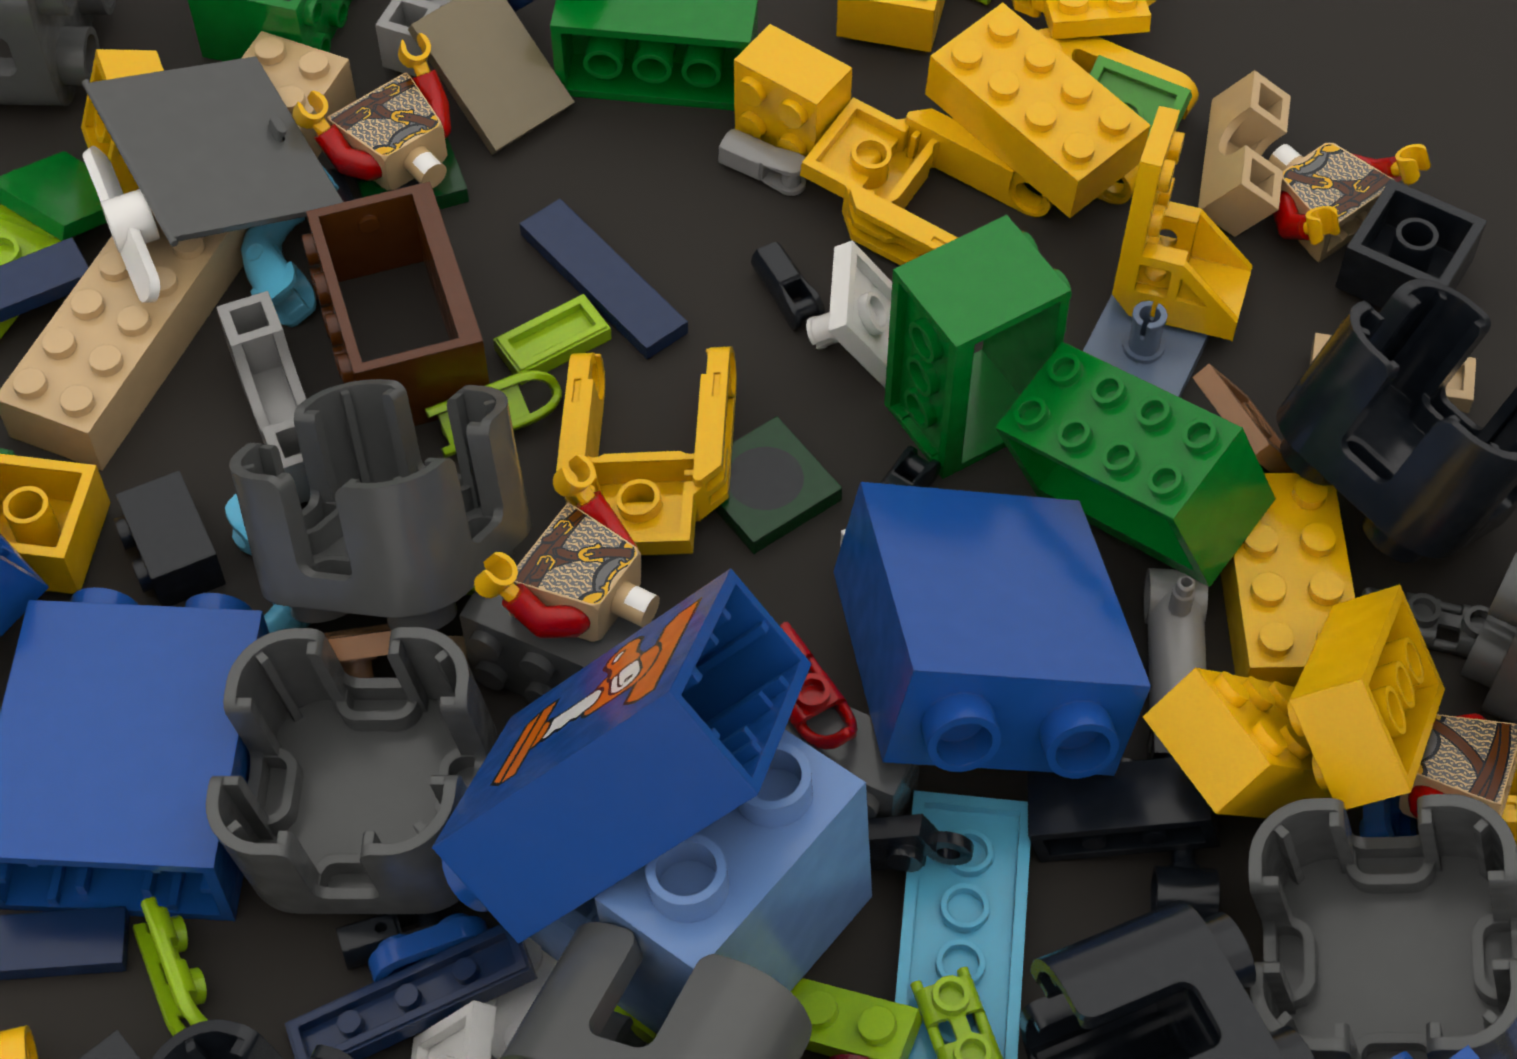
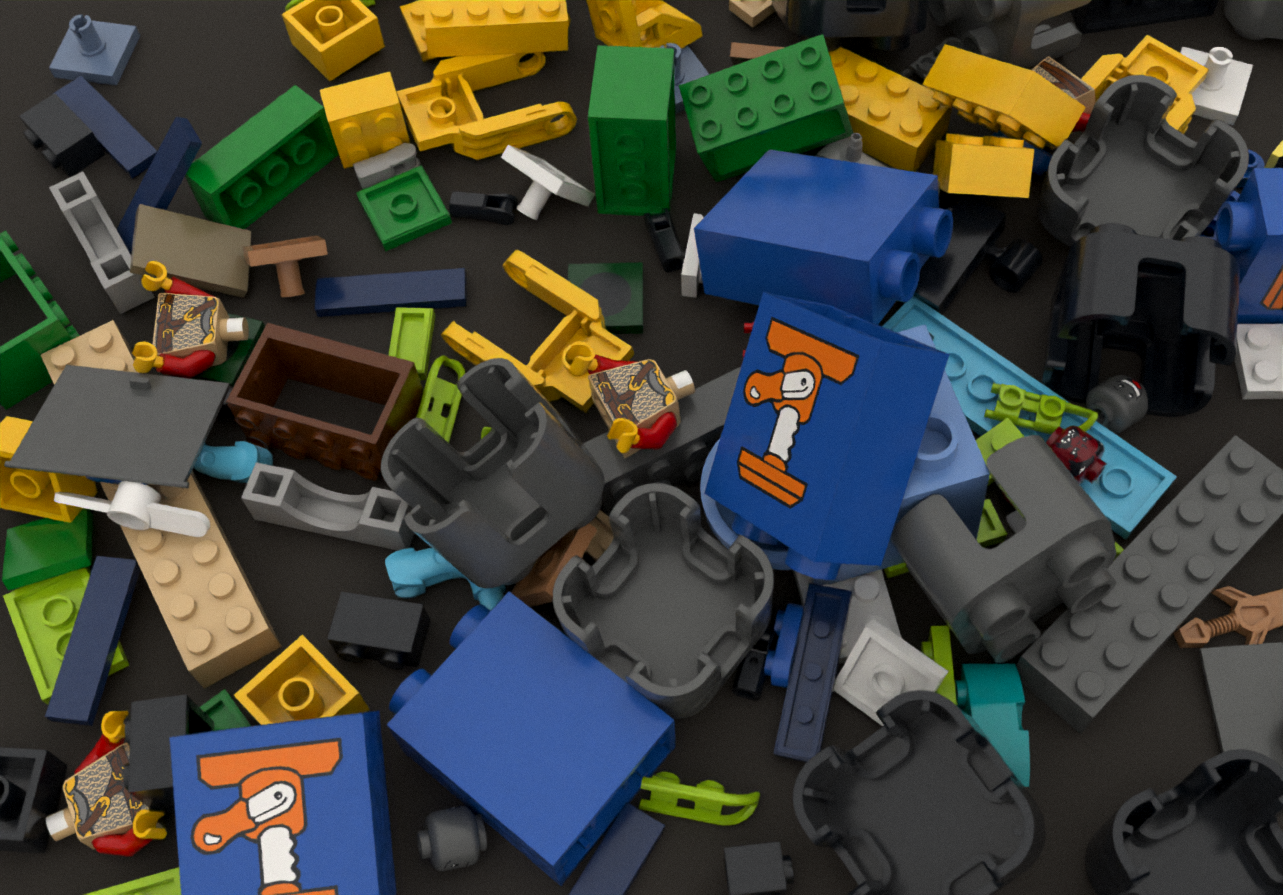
camera: 50 degrees left, 5 degrees up
(553, 148) = (285, 256): none -> medium nougat tile
(725, 215) = (403, 208): none -> green tile

